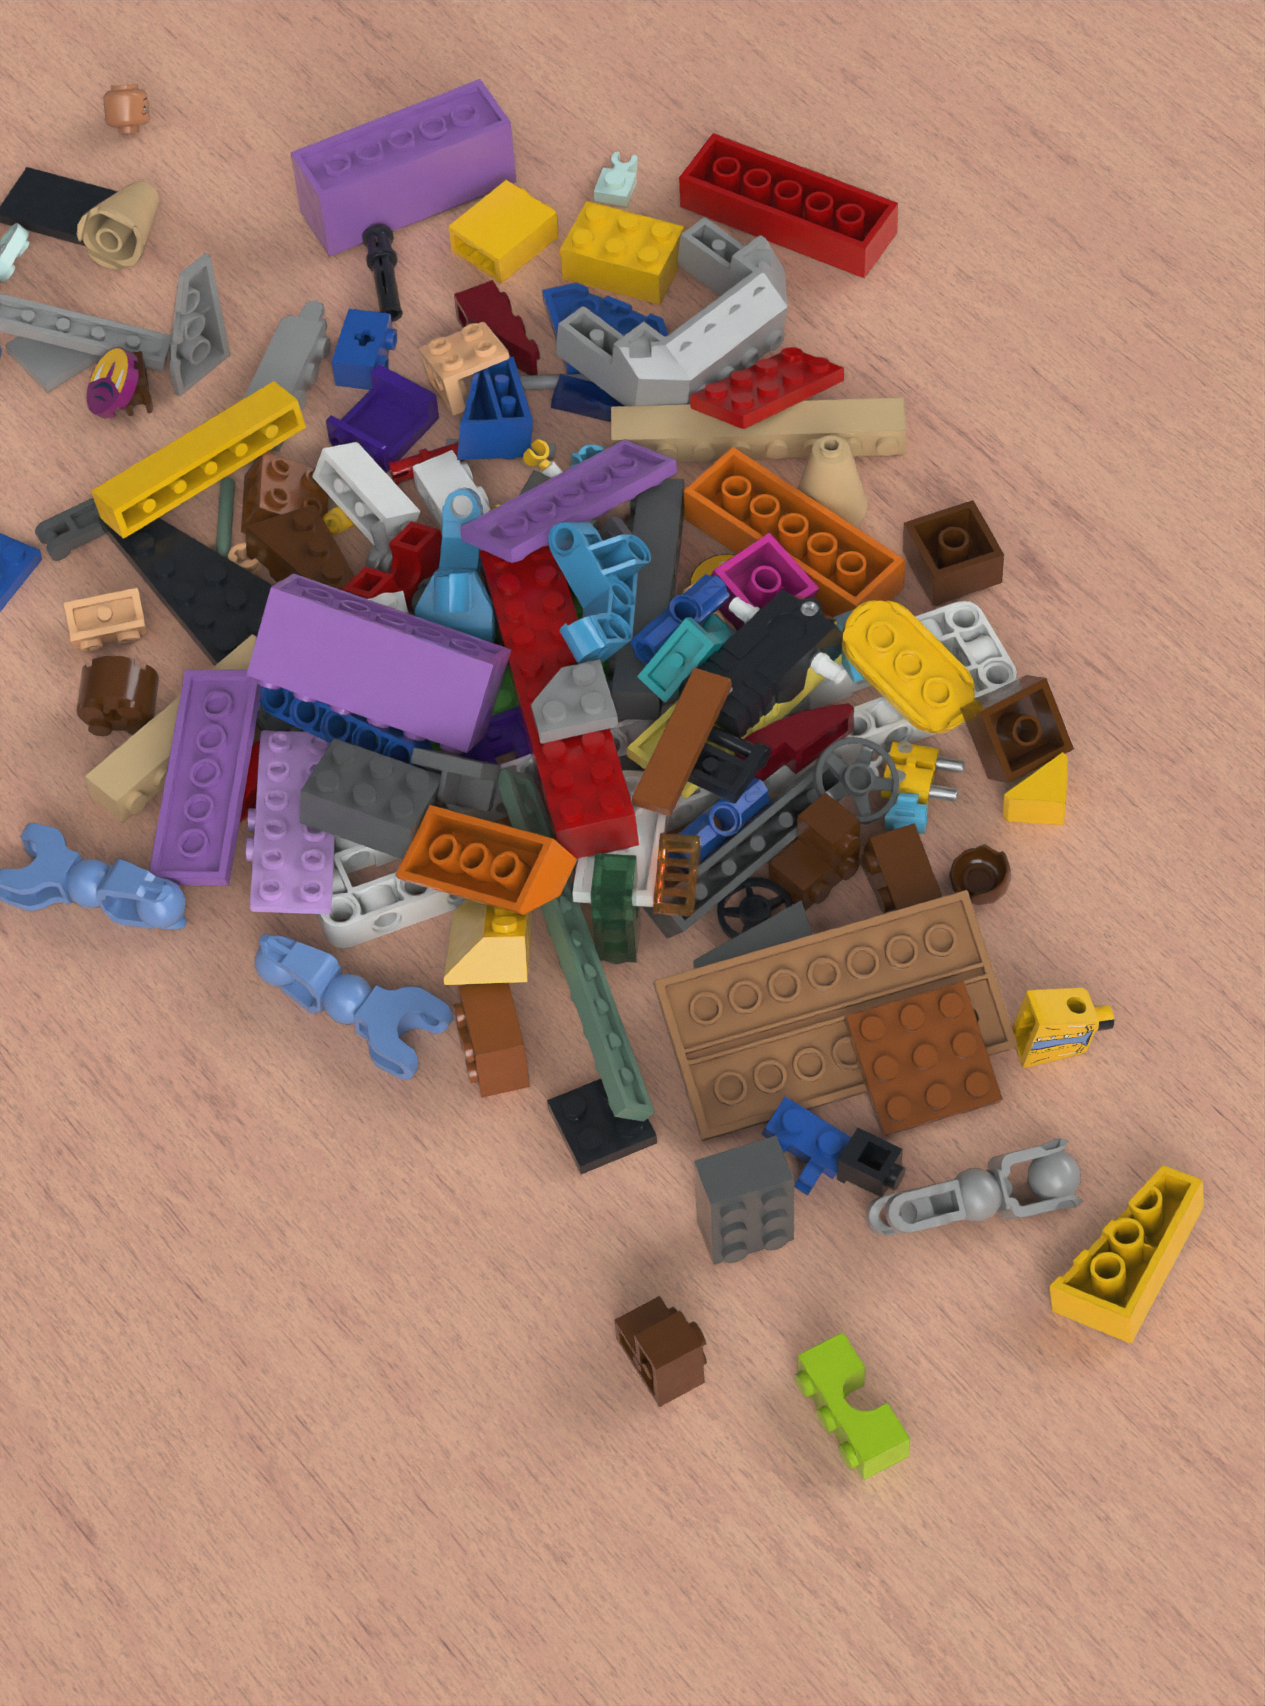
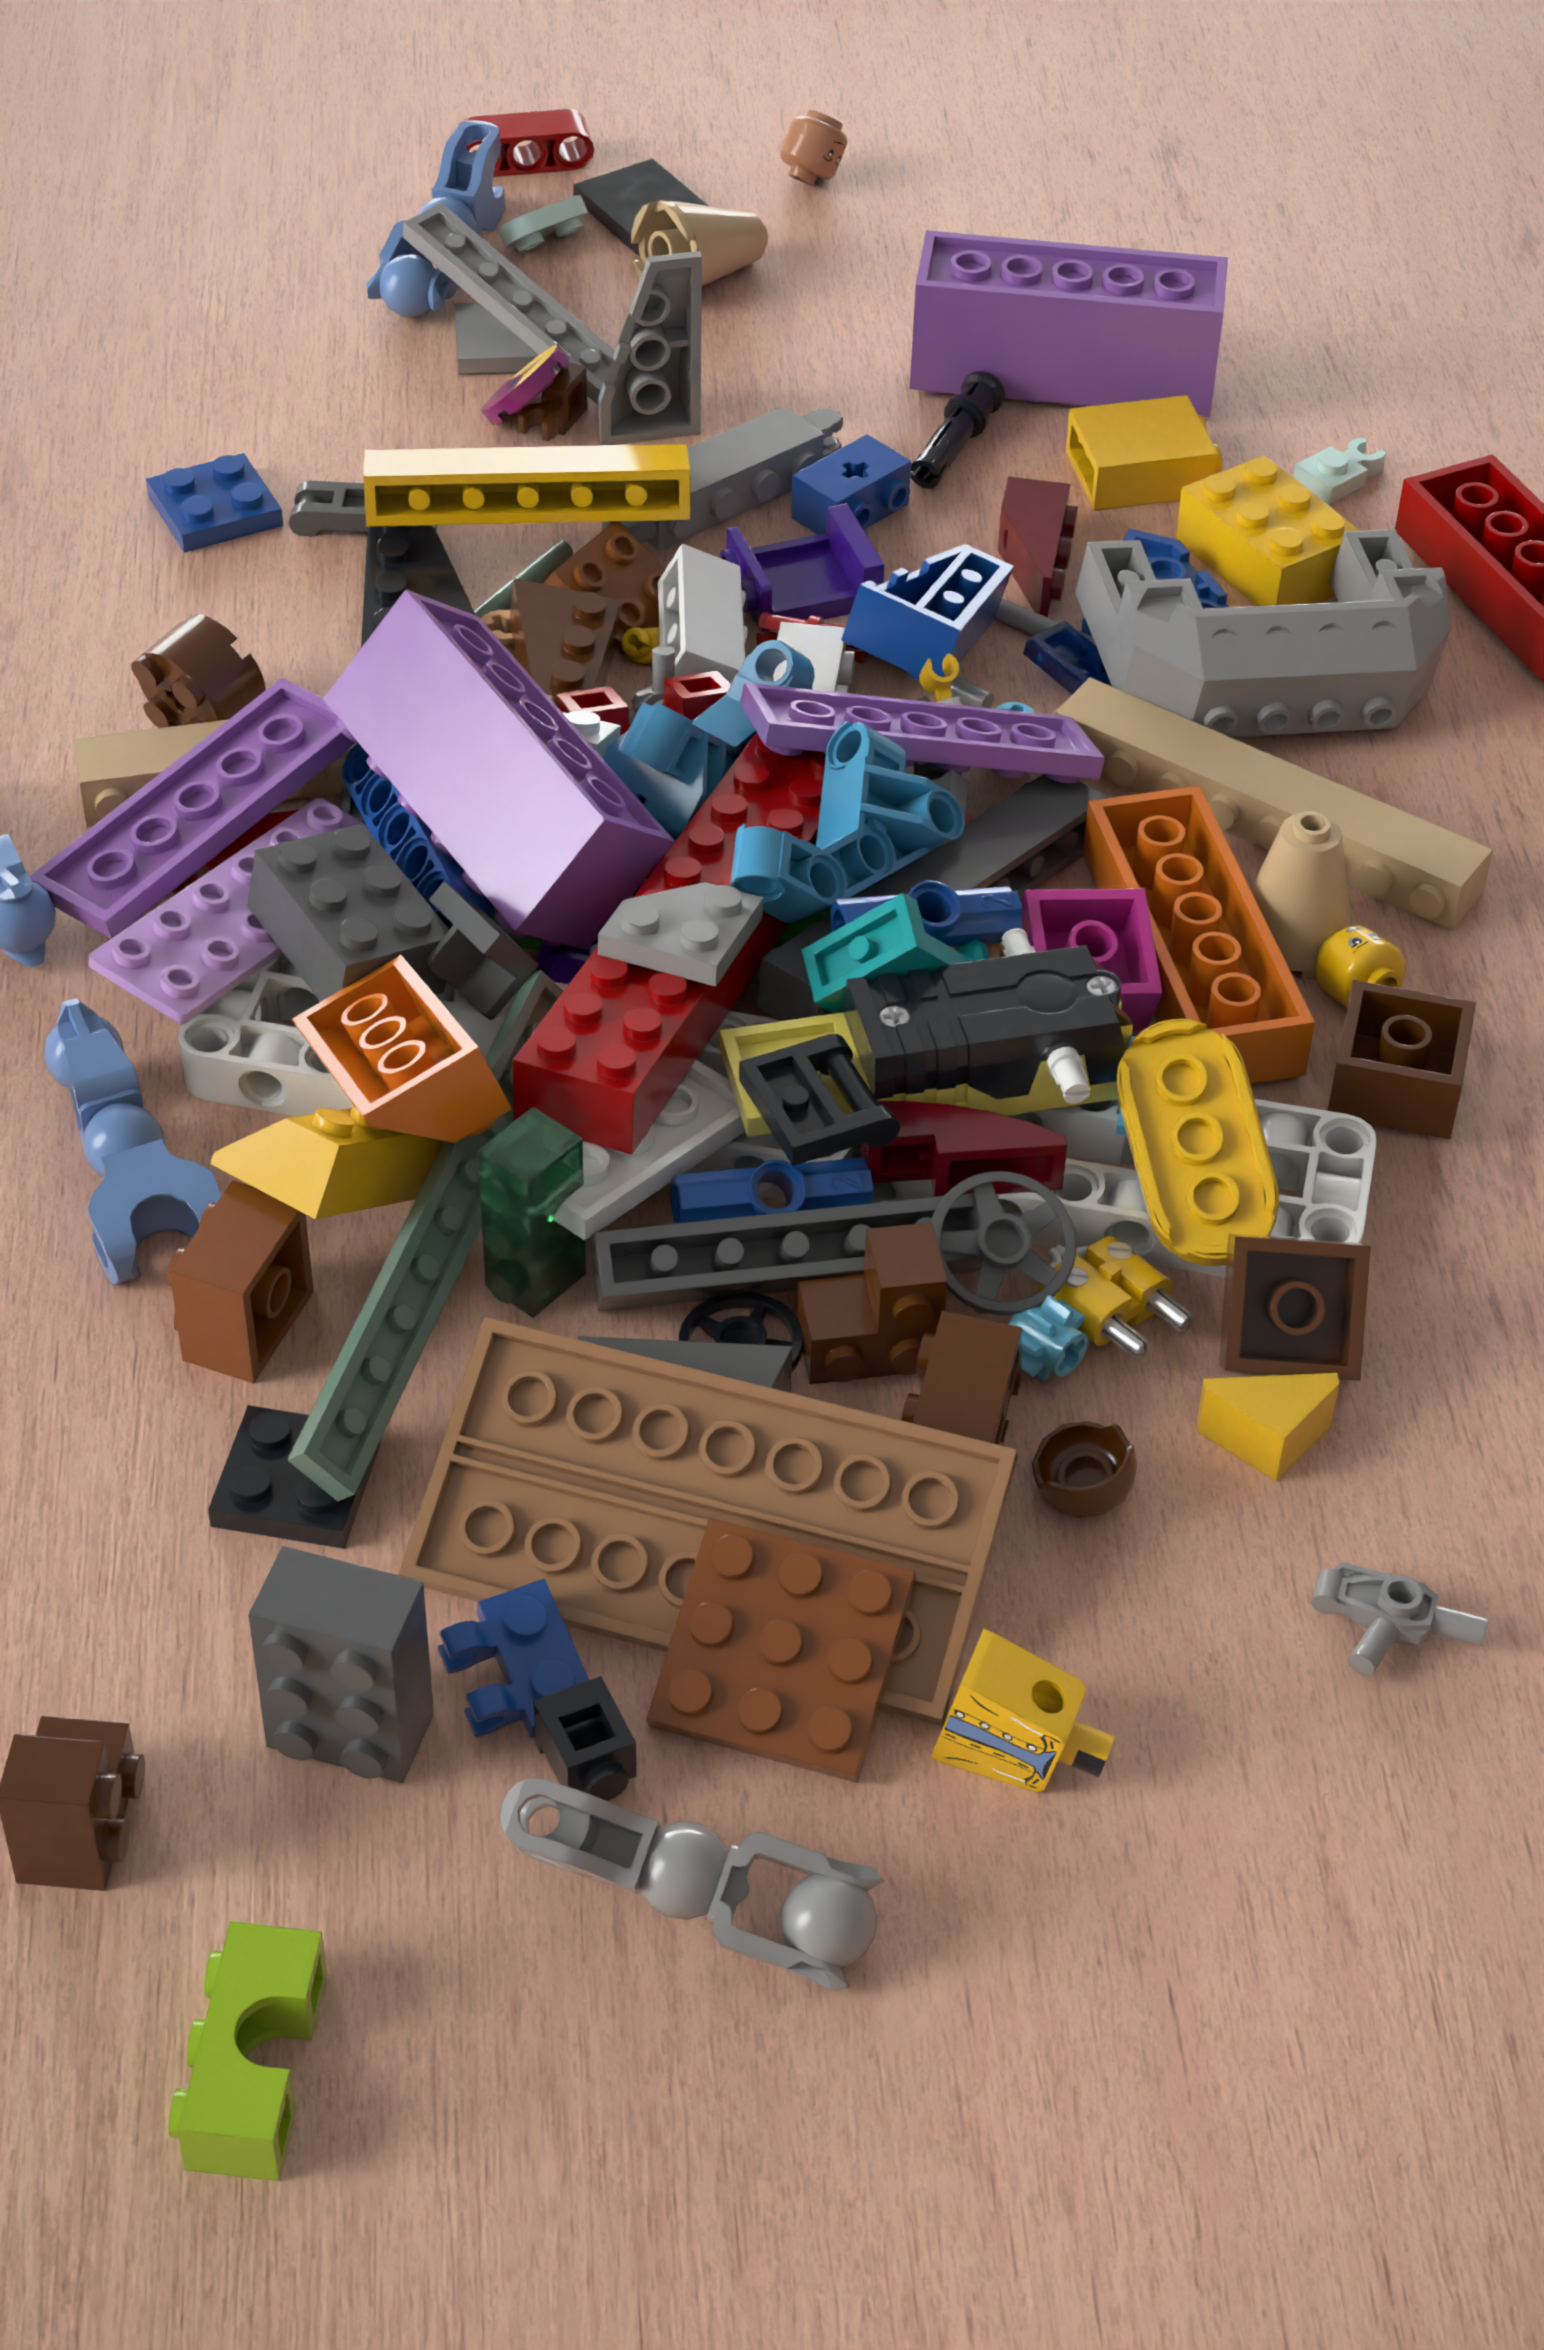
camera: 30 degrees right, 10 degrees down
(105, 619) = (278, 608): light nougat bracket -> none
(458, 356) = (934, 529): light nougat bracket -> none
(678, 844) = (649, 1171): clear orange slope -> none
(682, 742) = (776, 1045): dark orange tile -> none
(767, 387) = (1314, 752): red plate -> none
(887, 508) = (1359, 956): none -> yellow head
(1127, 1265) = (841, 2108): yellow wedge -> none
(1172, 859) = (1391, 1610): none -> light grey piece

